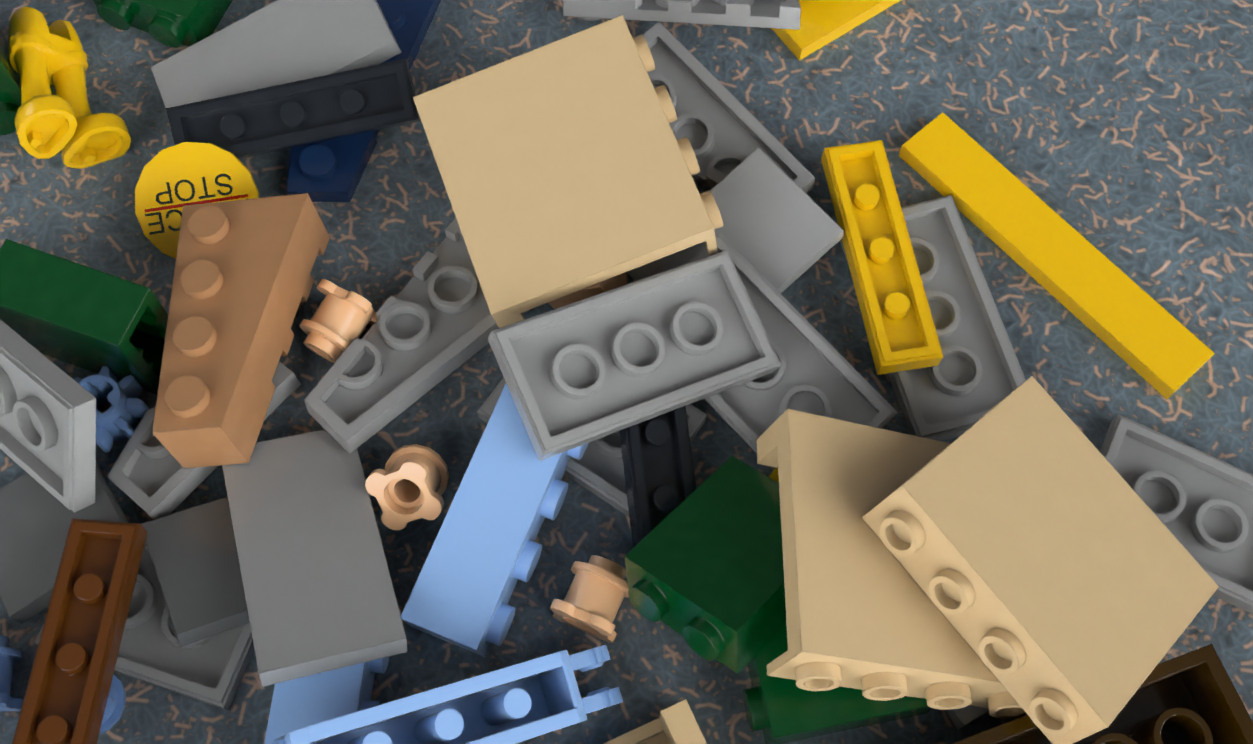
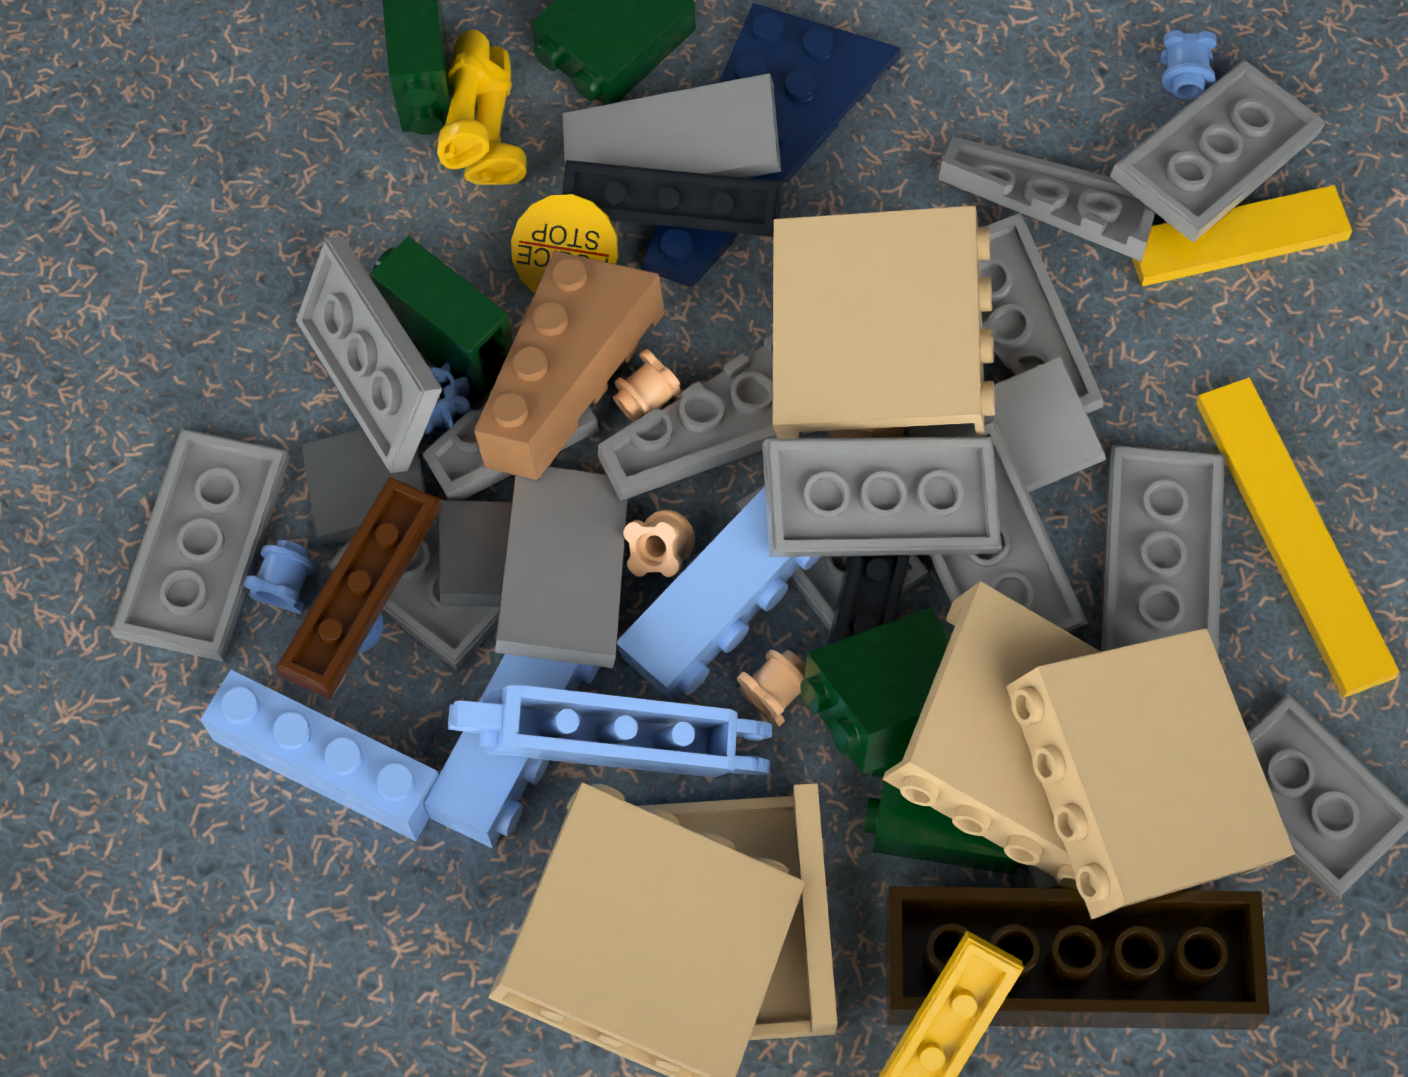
camera: 25 degrees right, 0 degrees up
(881, 258) = (1133, 487): yellow tile -> none

